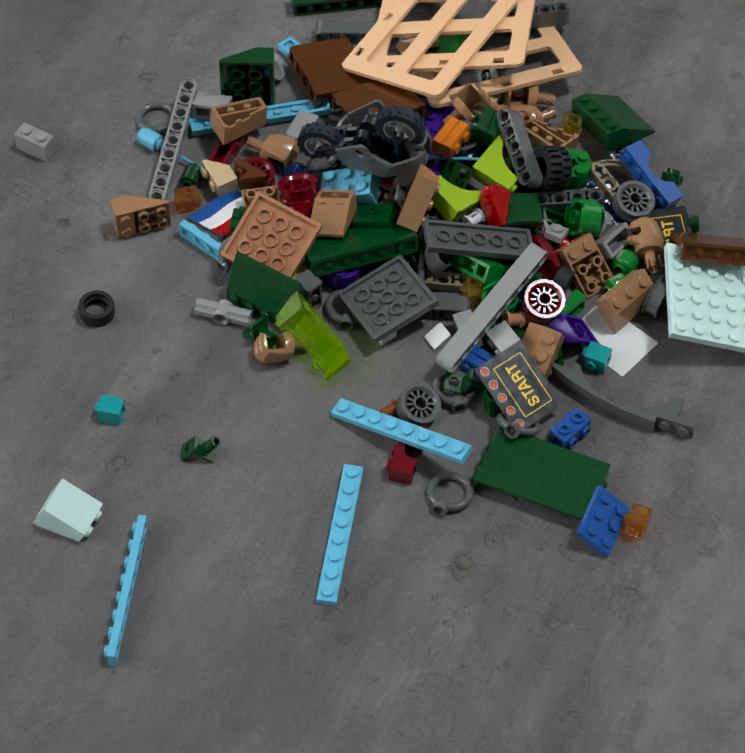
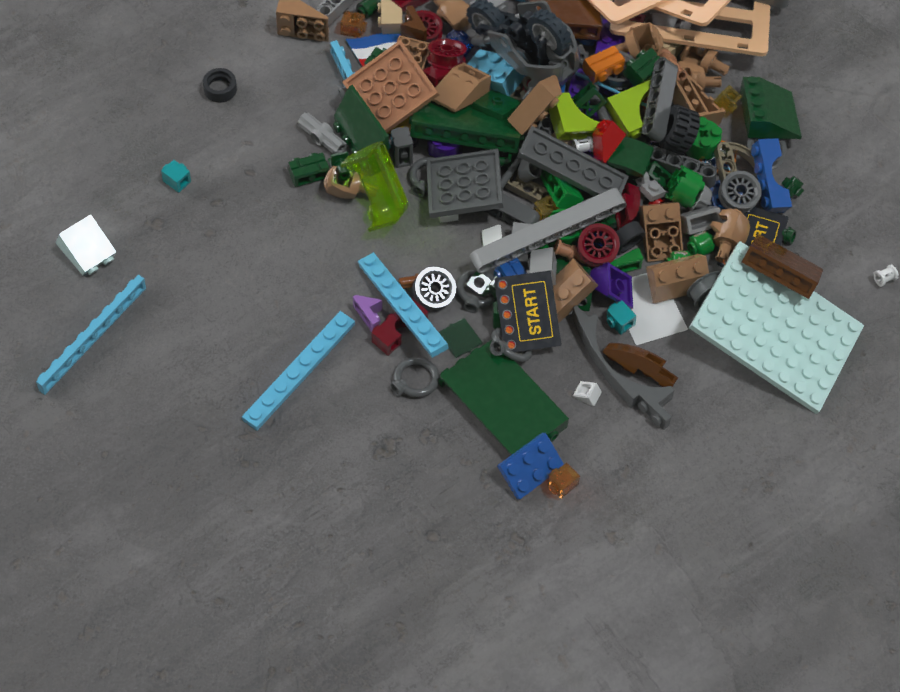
camera: 25 degrees right, 5 degrees up
(201, 448) = (228, 242): dark green bracket -> none
(232, 349) = (308, 169): none -> dark green brick
(368, 452) = (368, 310): none -> medium lavender slope
(469, 435) = (460, 338): none -> clear green piece
(570, 429) = (555, 371): blue brick -> none
(607, 436) = (587, 392): none -> white slope
(631, 388) = (637, 358): none -> reddish brown slope

